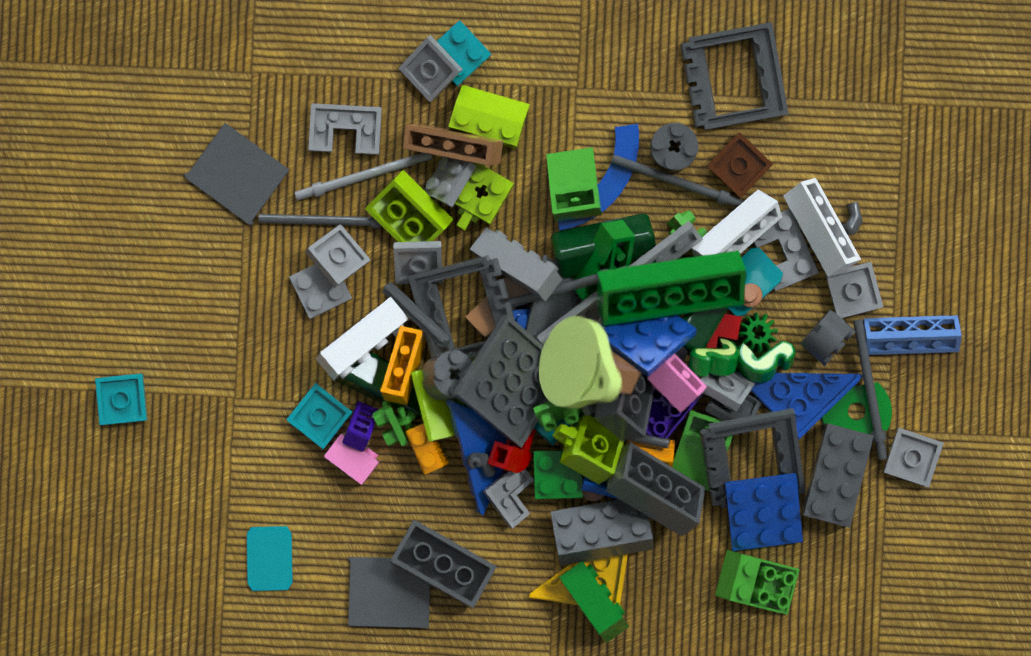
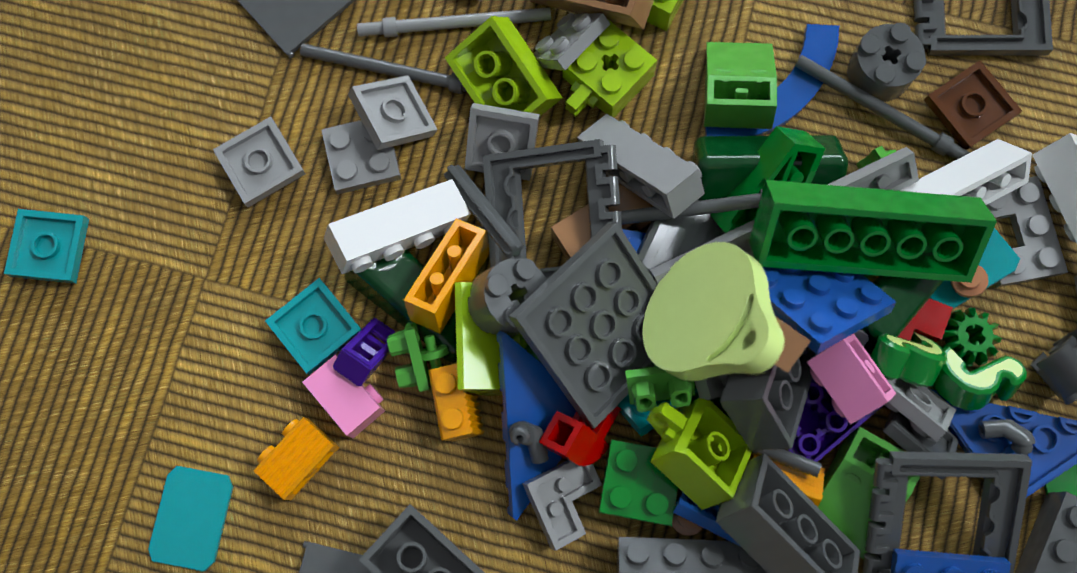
camera: 15 degrees right, 10 degrees down
(251, 309) = (259, 162): none -> light grey plate
(330, 505) = (295, 458): none -> light orange brick
(790, 390) = (1019, 436): none -> dark grey arm

